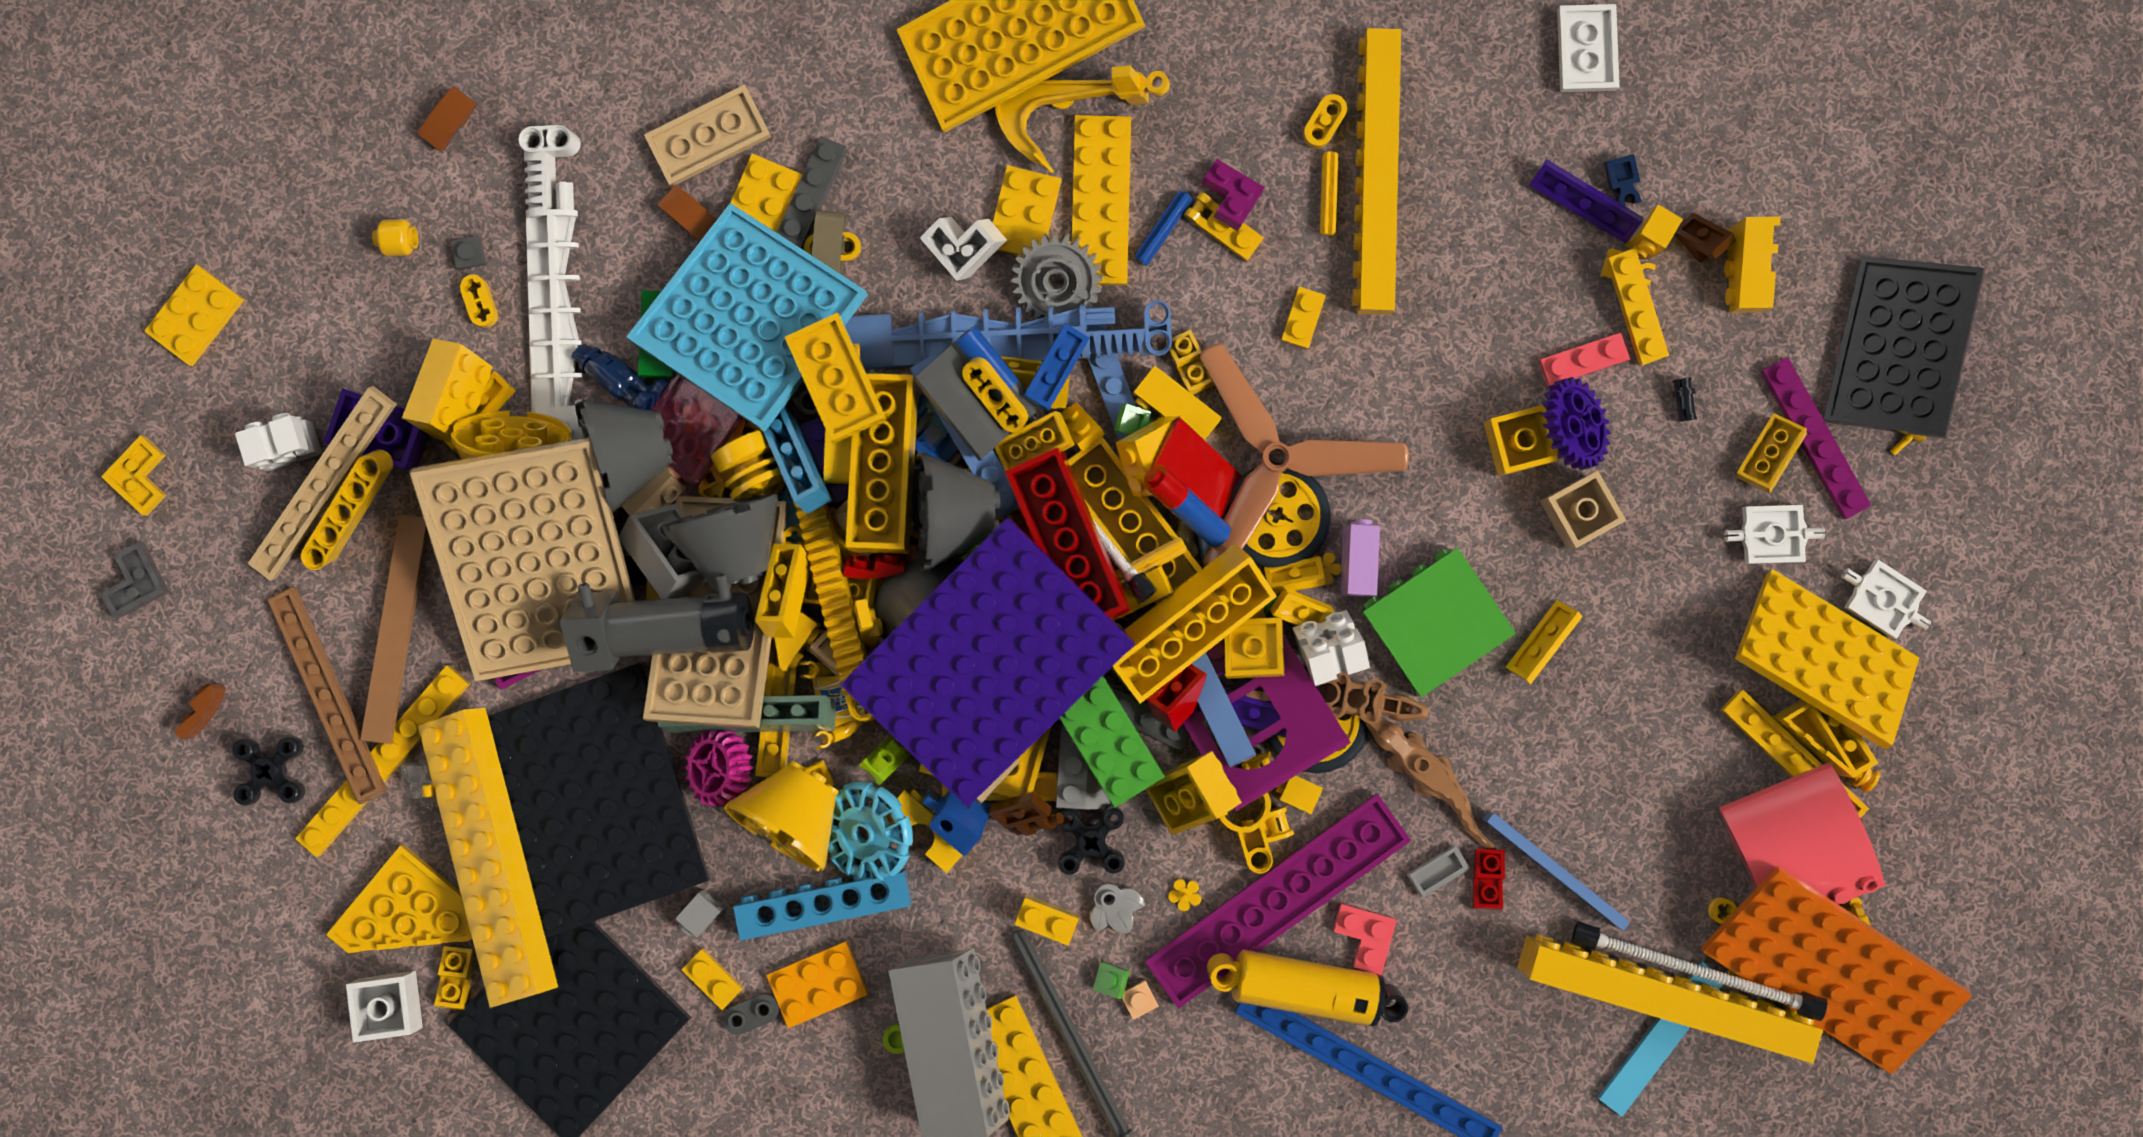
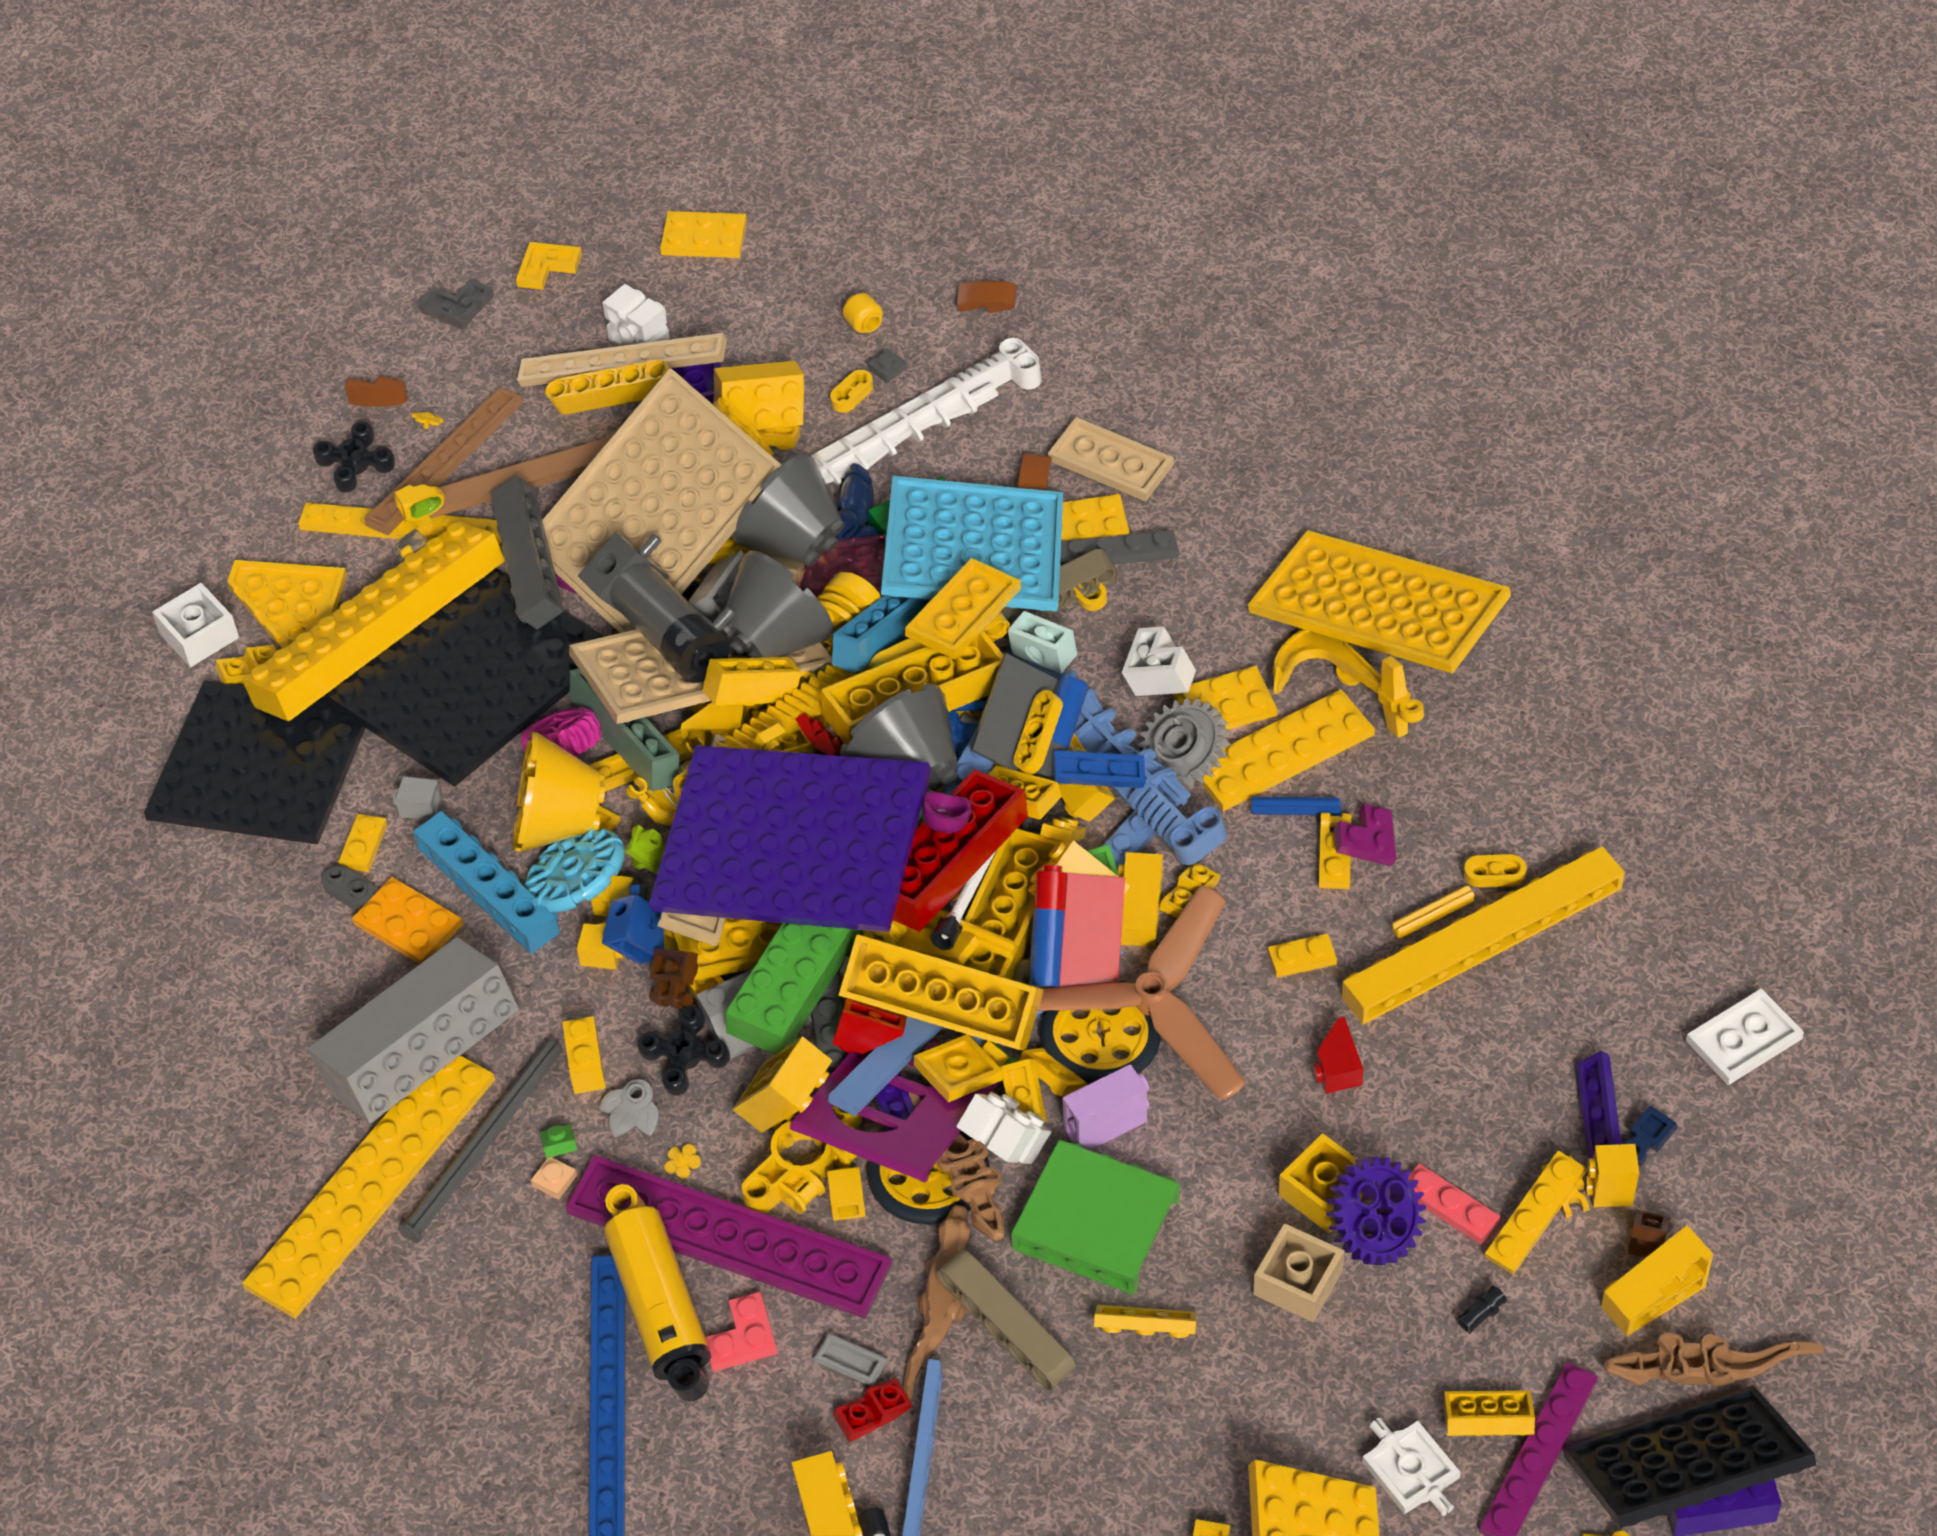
camera: 60 degrees right, 35 degrees down
(262, 682) = (427, 418): none -> yellow plant
(376, 751) = (418, 501): none -> yellow rock
(497, 689) = (526, 552): none -> dark grey brick
(886, 325) = (1042, 642): none -> light aqua brick
(1058, 535) = (945, 812): none -> magenta helmet
(1417, 357) = (1338, 1060): none -> red slope
(1488, 745) = (1006, 1319): none -> dark tan beam
(1831, 276) = (1701, 1362): none -> medium nougat animal

